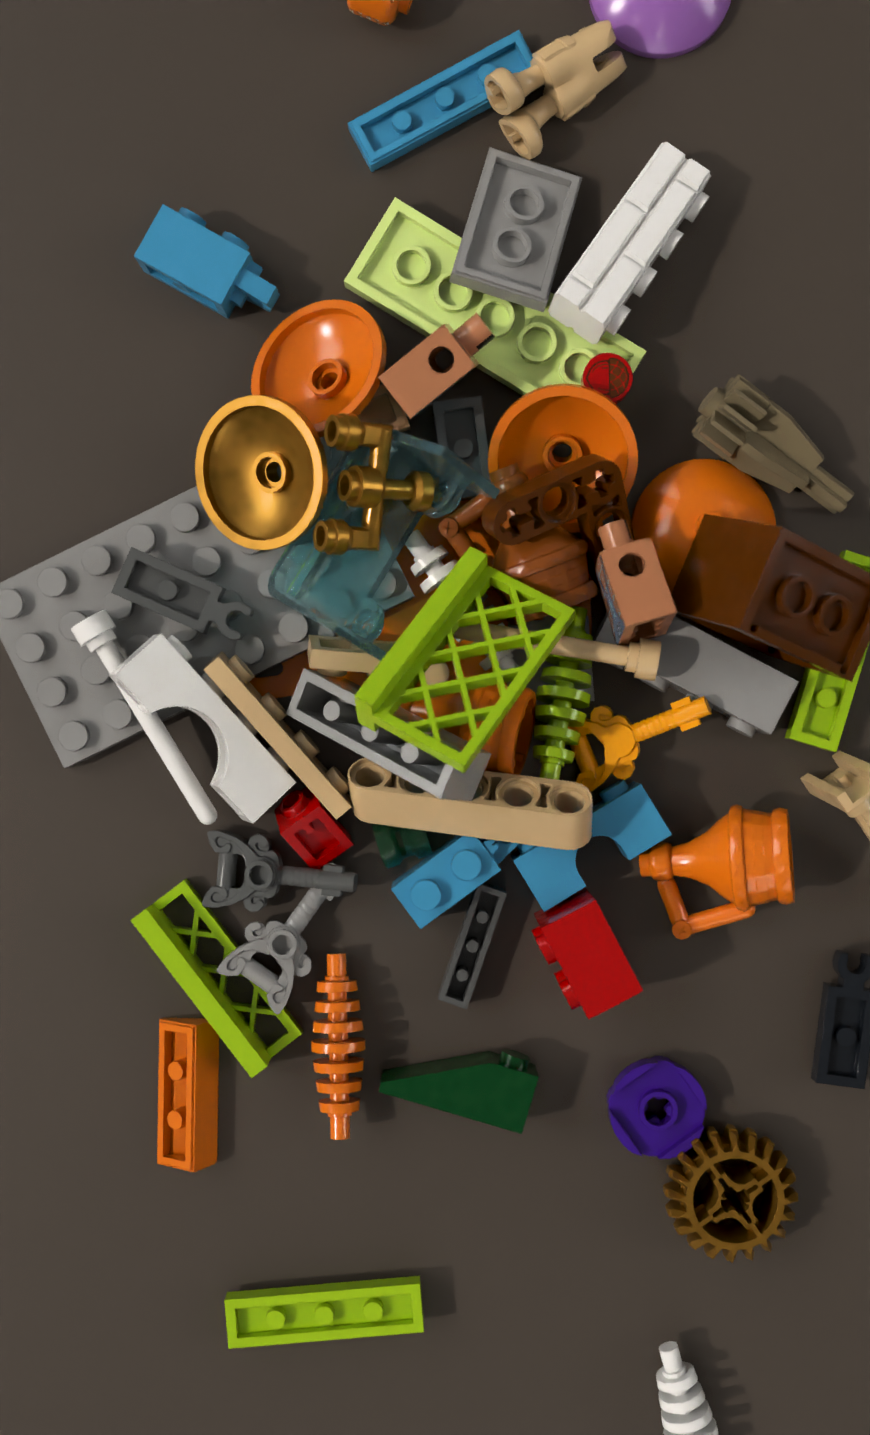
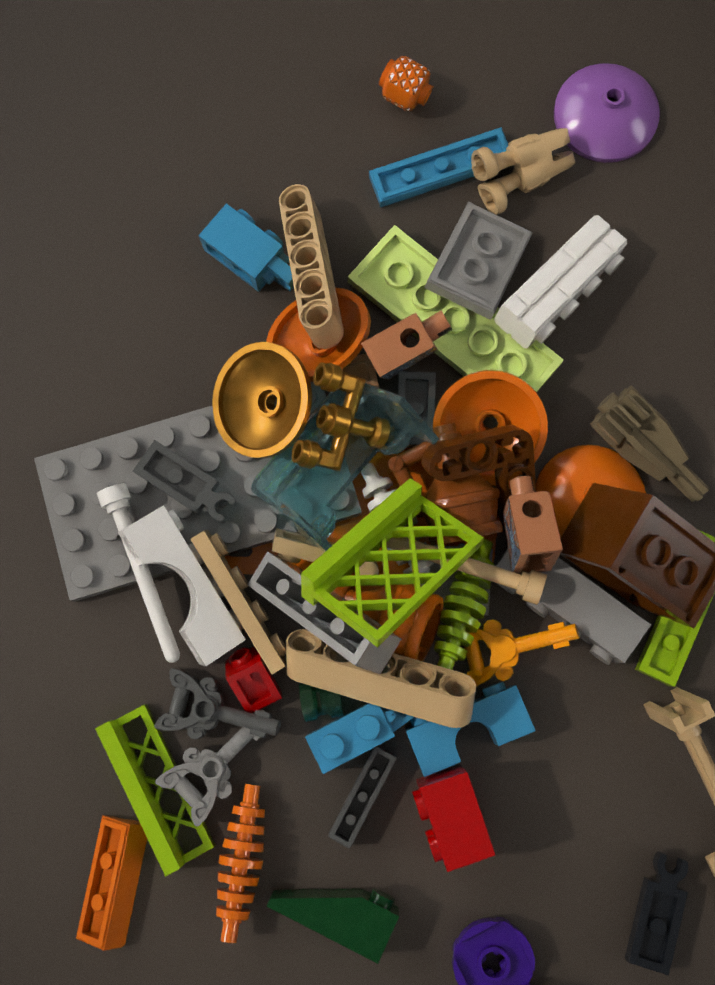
camera: 10 degrees right, 10 degrees down
(292, 276) = (310, 267): none -> tan beam
(608, 375) = (534, 371): red tile -> none
(740, 857) = (588, 758): orange piece -> none

